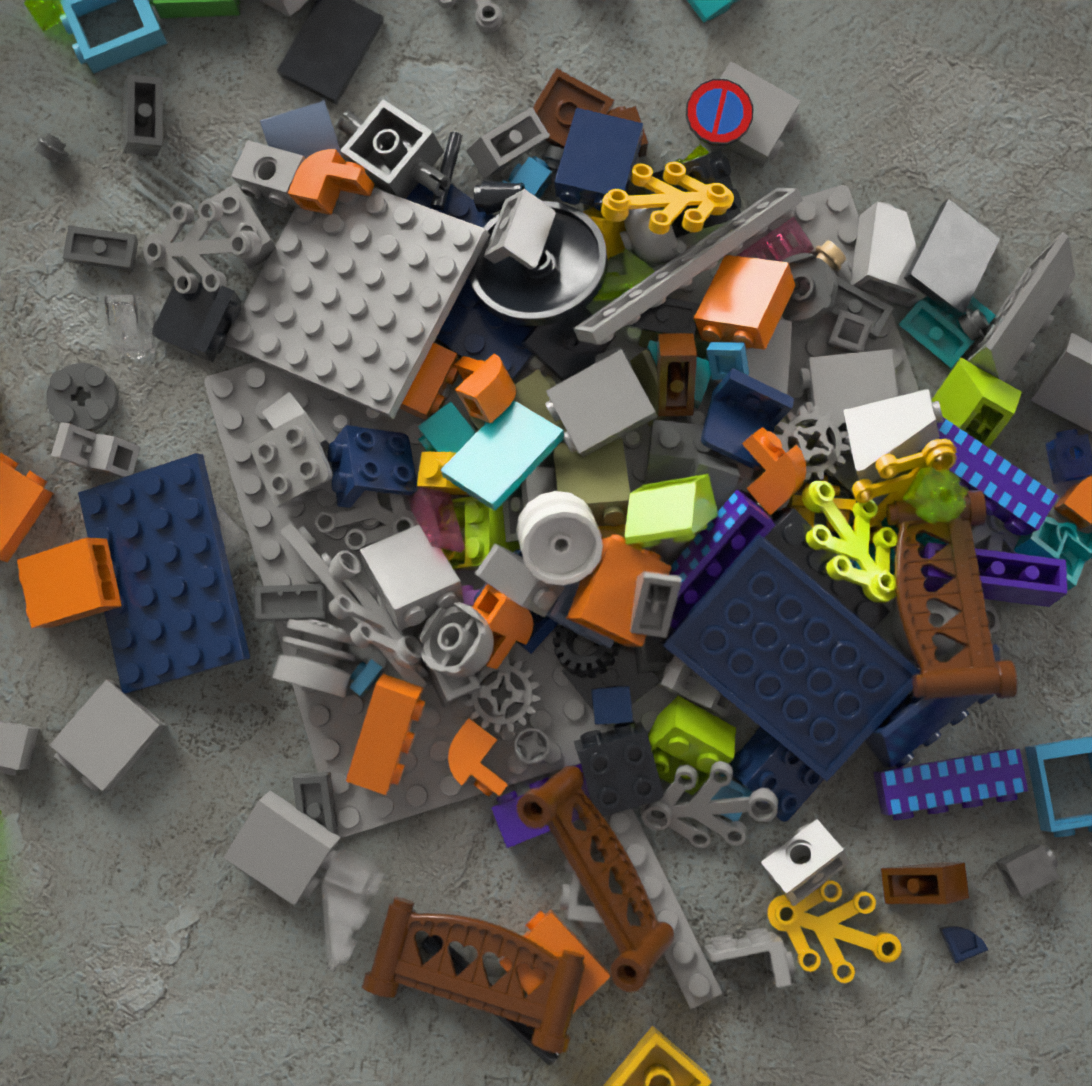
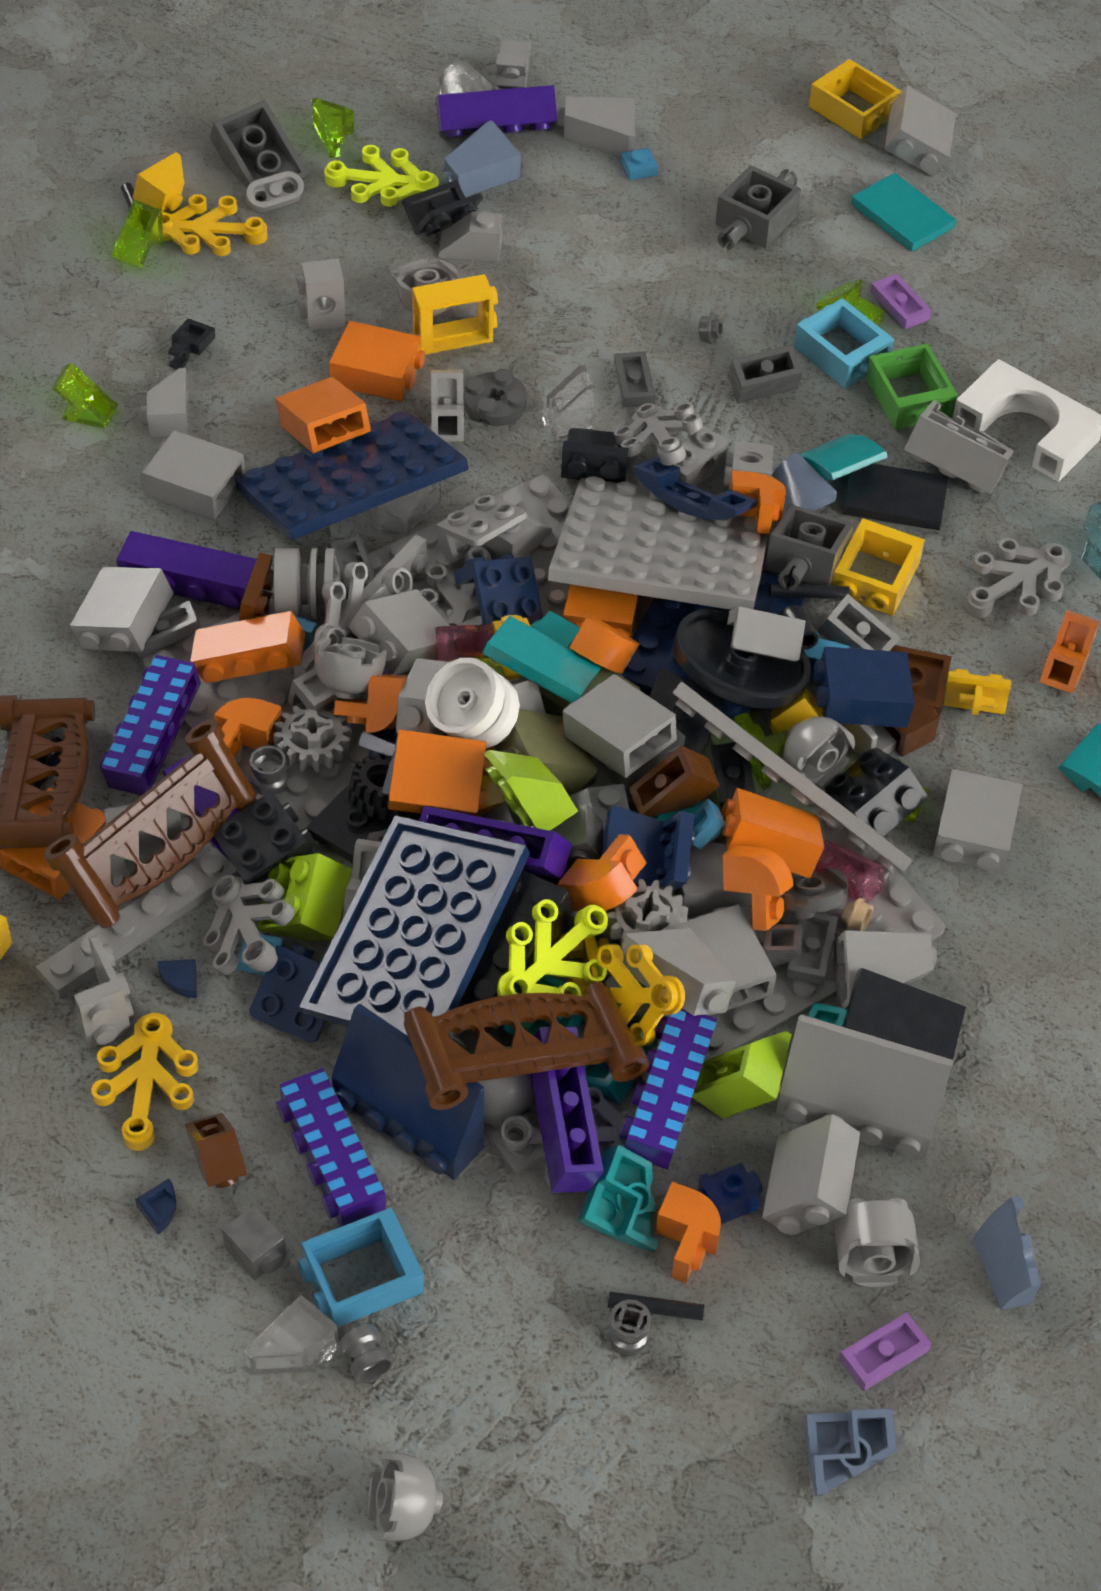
camera: 75 degrees right, 30 degrees down
(241, 769) = (190, 568): none -> dark purple brick
(276, 79) = (844, 455): none -> teal slope
(305, 243) = (665, 484): none -> dark blue slope
(337, 719) = (256, 597): none -> reddish brown plate
(345, 894) = (78, 660): clear slope -> none
(402, 73) = (887, 545): none -> yellow window
(441, 848) = (150, 725): none -> dark purple brick
(606, 59) = (977, 692): none -> yellow hips
(612, 705) = (328, 822): dark blue slope -> none
(654, 603) = (433, 785): light grey slope -> none
(711, 198) = (864, 774): yellow plant -> none
(719, 112) = (959, 773): piece -> none
(730, 877) = (180, 976): none -> dark blue tile
(801, 880) = (210, 1026): brick -> none
(805, 331) = (762, 874): none -> orange brick
(936, 495) = (622, 996): clear neon green brick -> none

